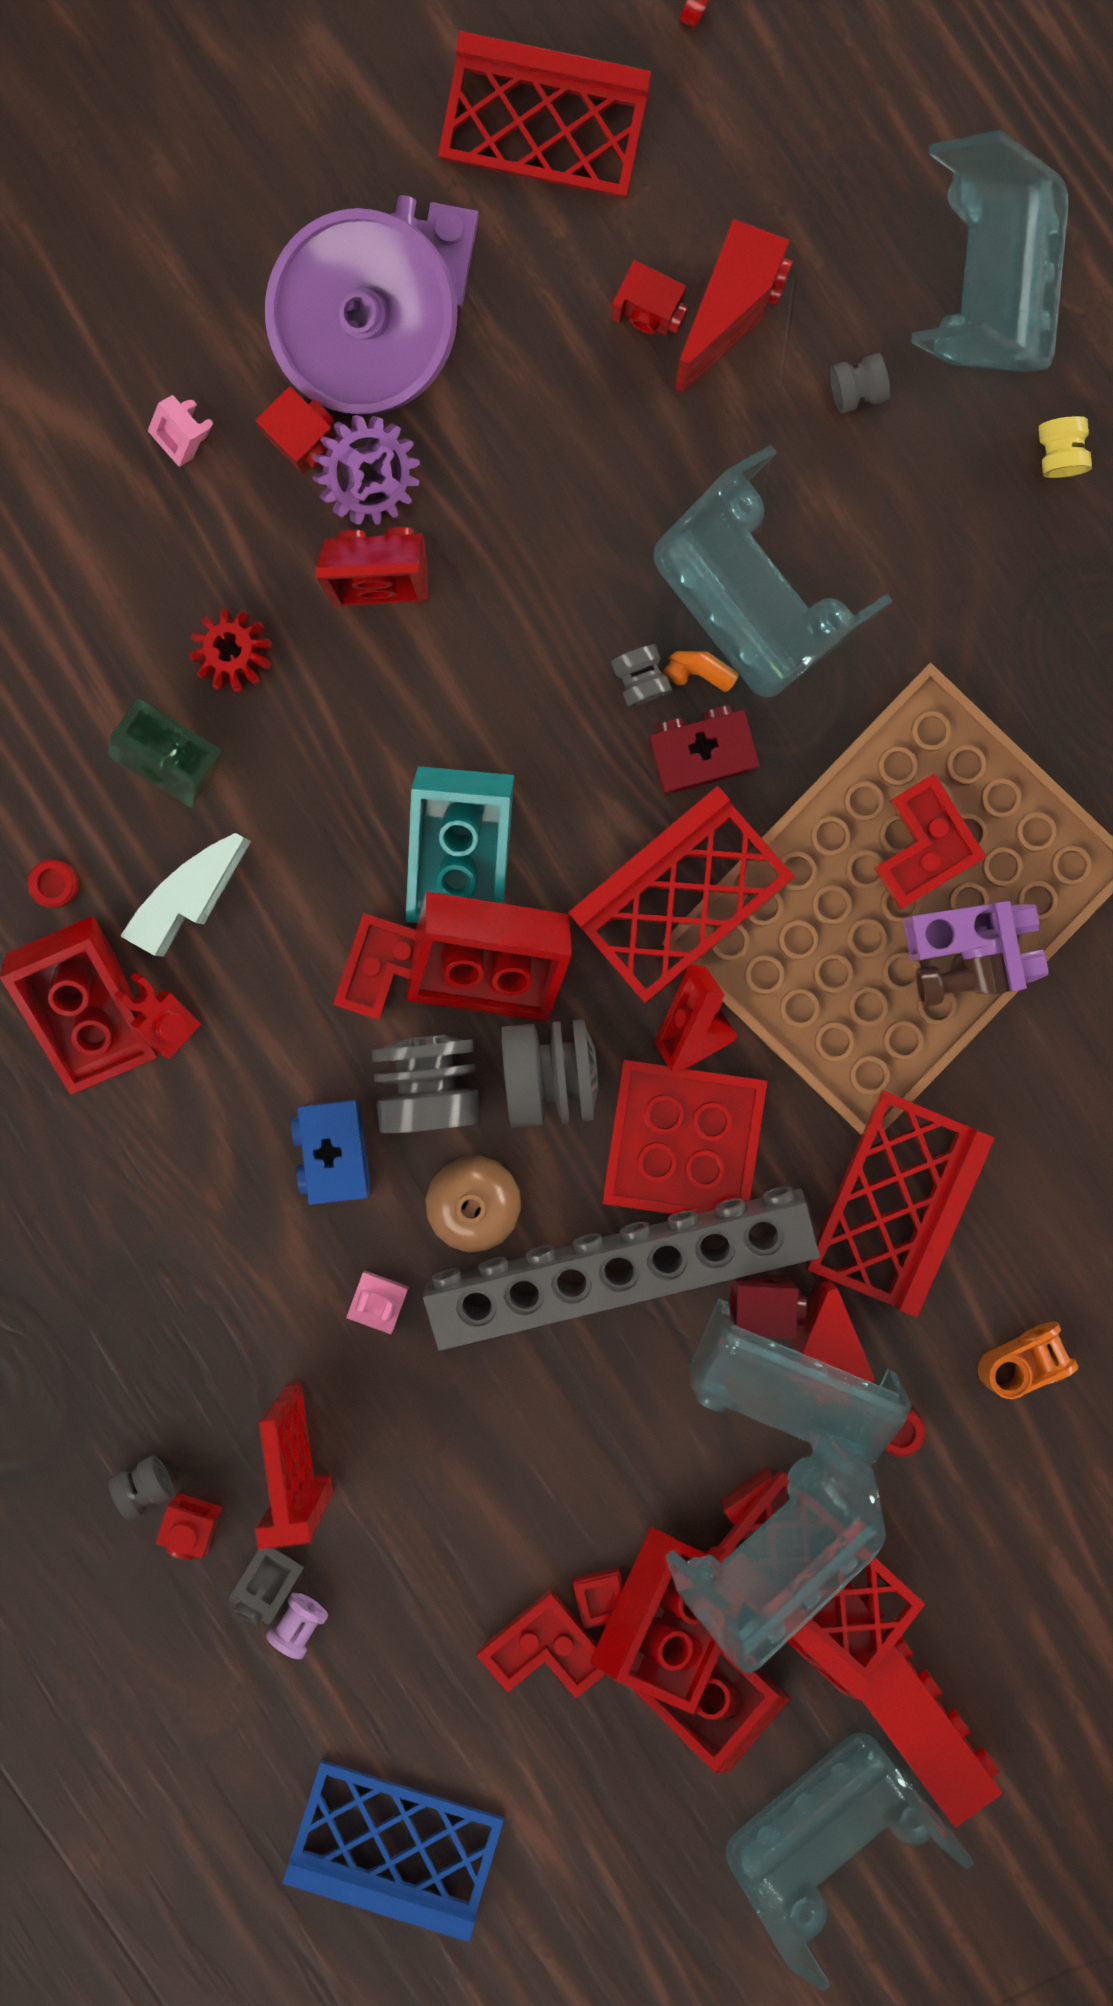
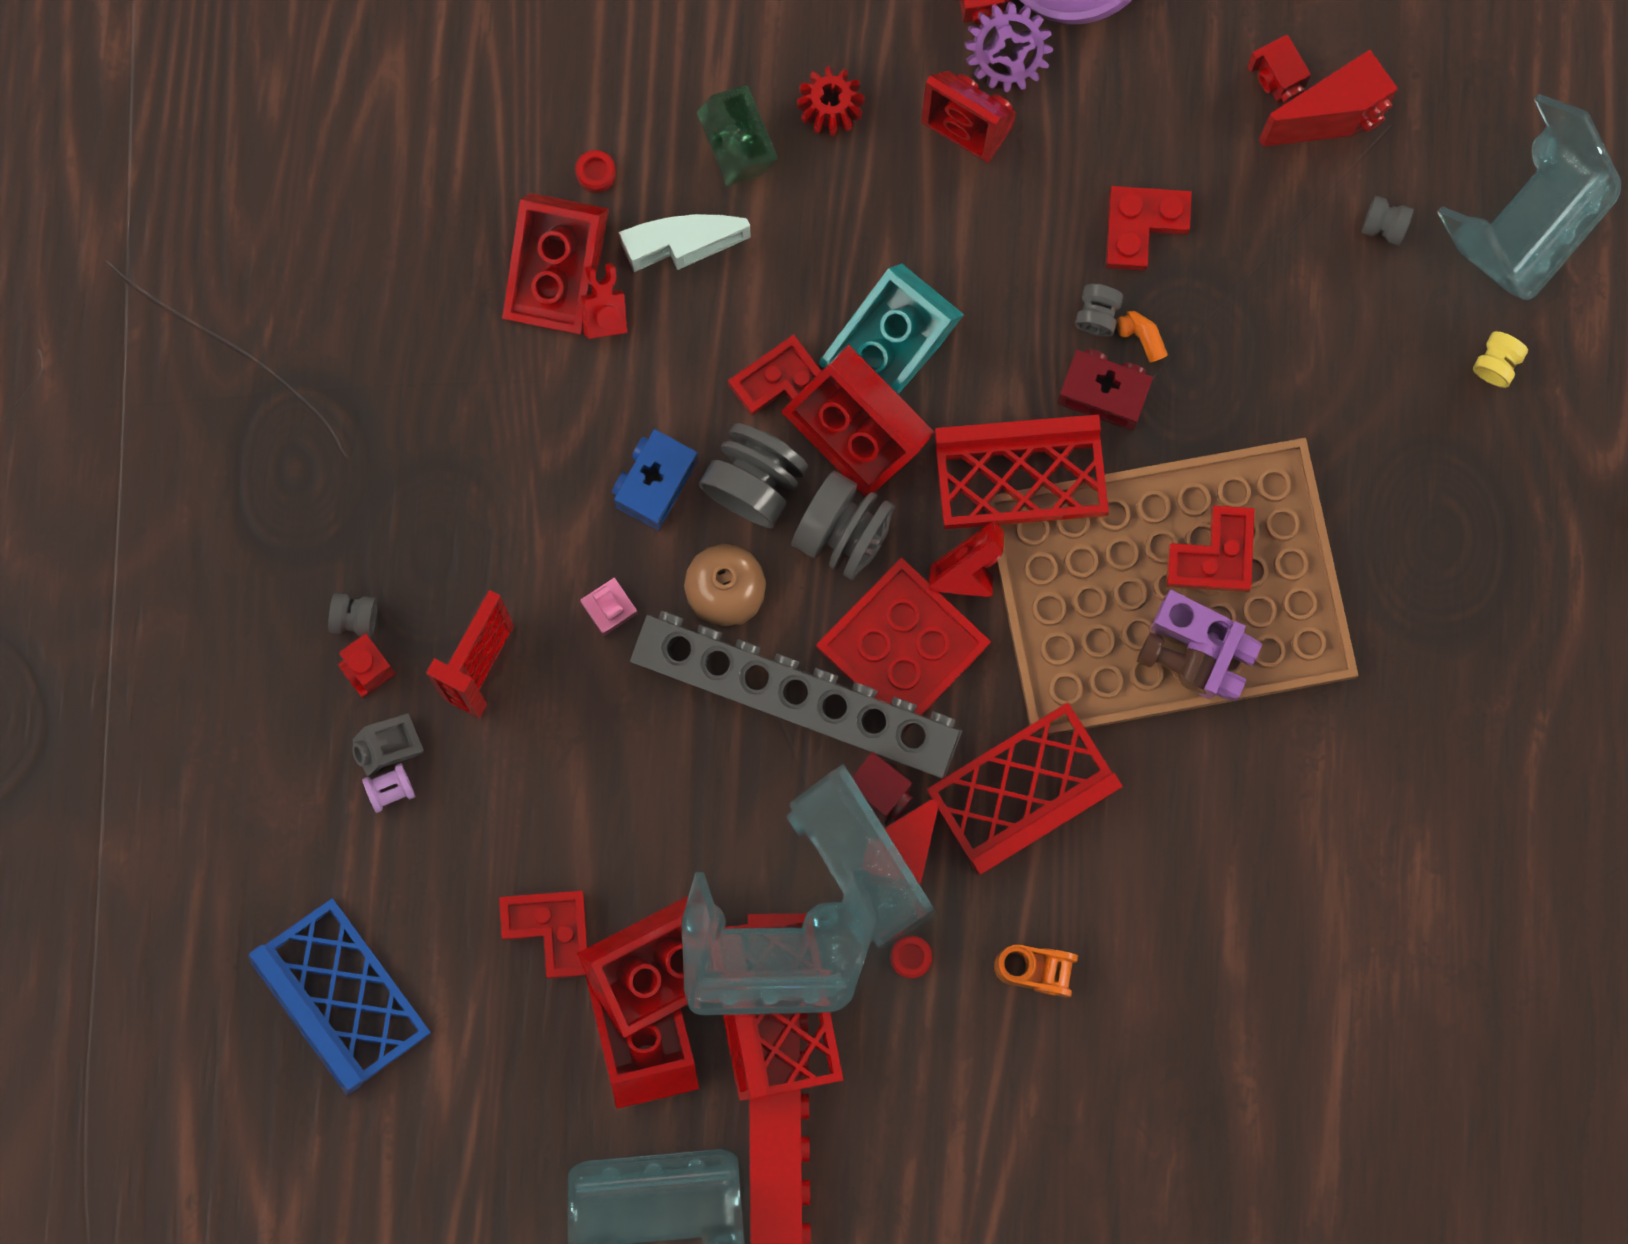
camera: 30 degrees right, 10 degrees down
(597, 1596) = (610, 919): red tile -> none
(608, 551) = (1135, 214): none -> red plate
(742, 593) = (1207, 299): clear light blue windscreen -> none

